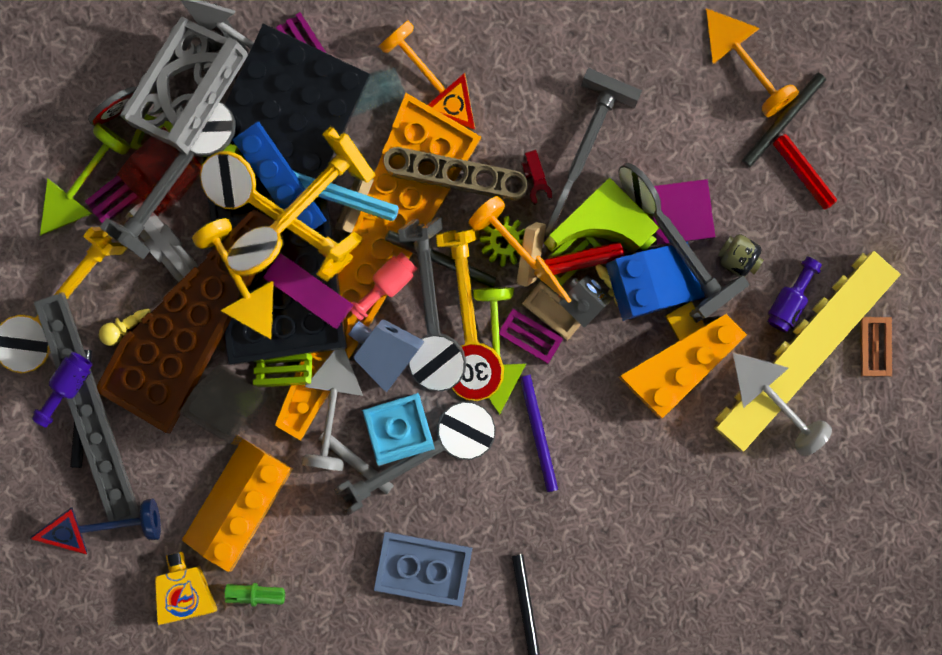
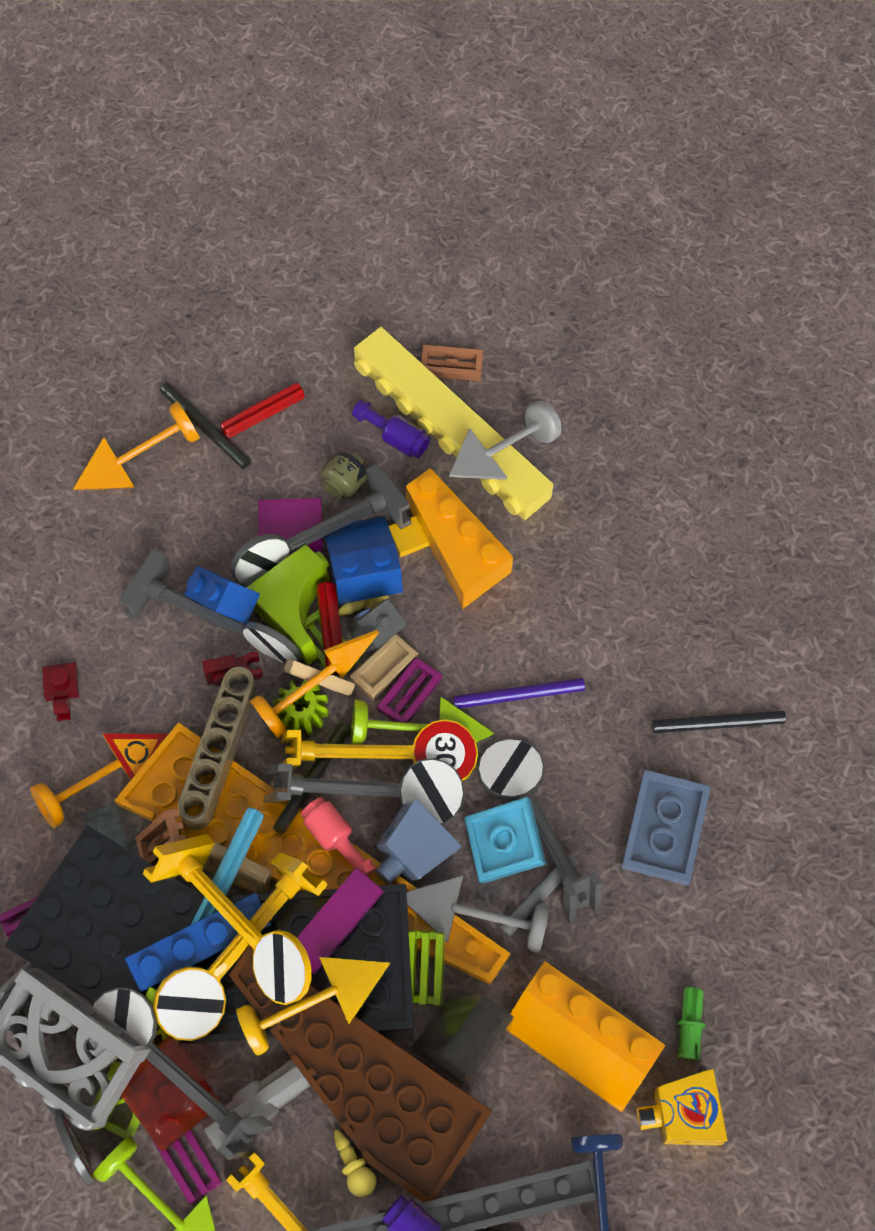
camera: 90 degrees left, 20 degrees down
(374, 144) = (149, 834): none -> nougat tile
(511, 30) = (60, 685): none -> dark red plate
(599, 158) = (221, 594): none -> blue brick

